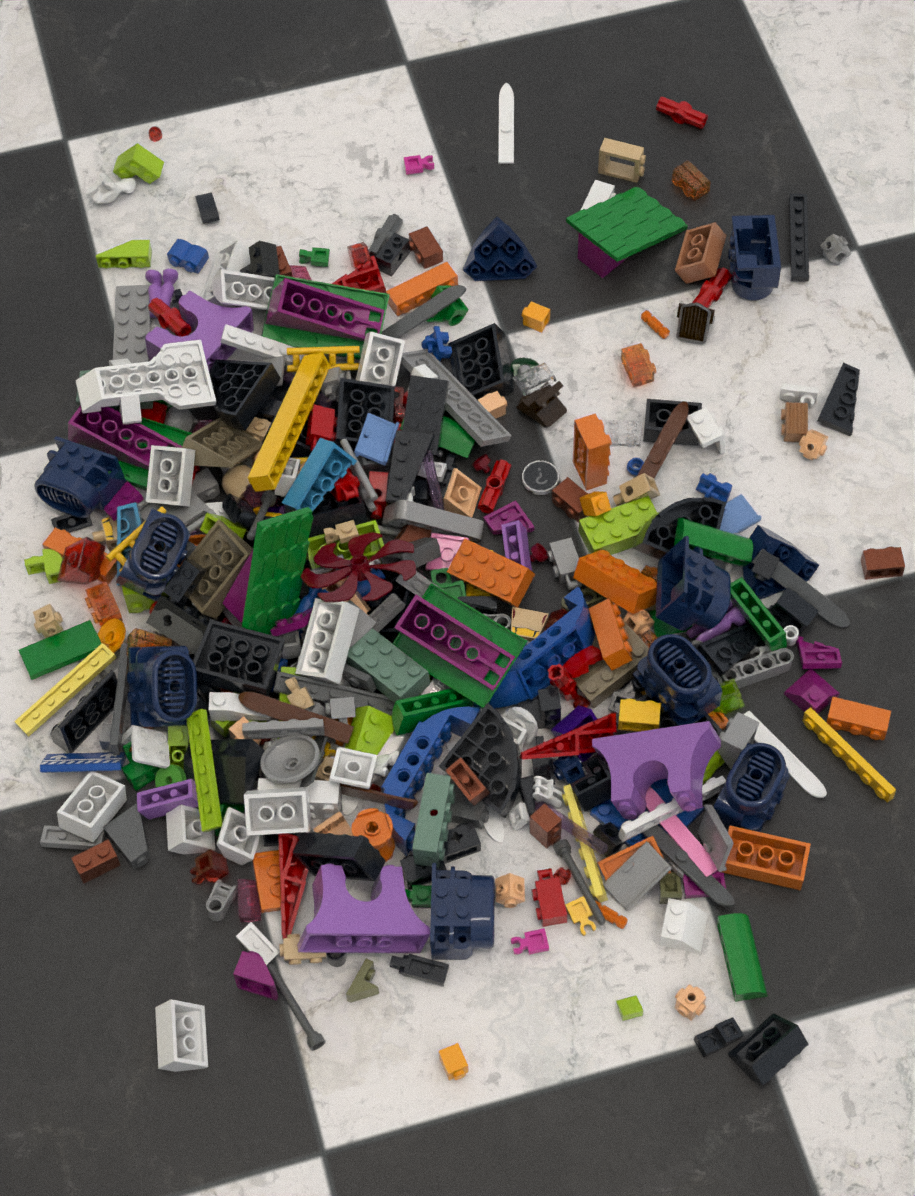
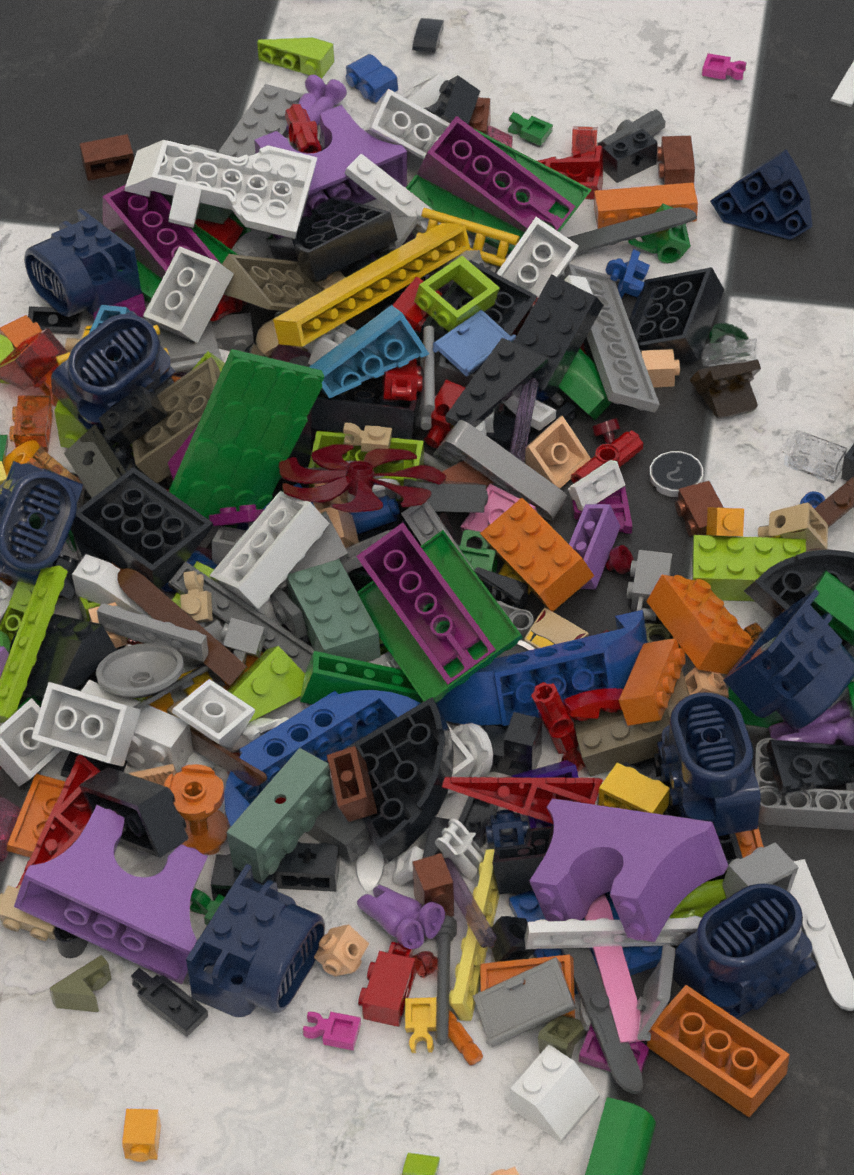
camera: 25 degrees right, 10 degrees down
(38, 383) = (107, 157): none -> copper brick
(354, 395) = (466, 276): none -> lime window
(500, 508) = (597, 485): none -> white plate
(534, 851) = (403, 916): none -> medium lavender piece
(536, 316) = (777, 285): light orange brick -> none
(591, 451) = (753, 454): orange brick -> none
(731, 697) = (779, 825): clear neon green slope -> none

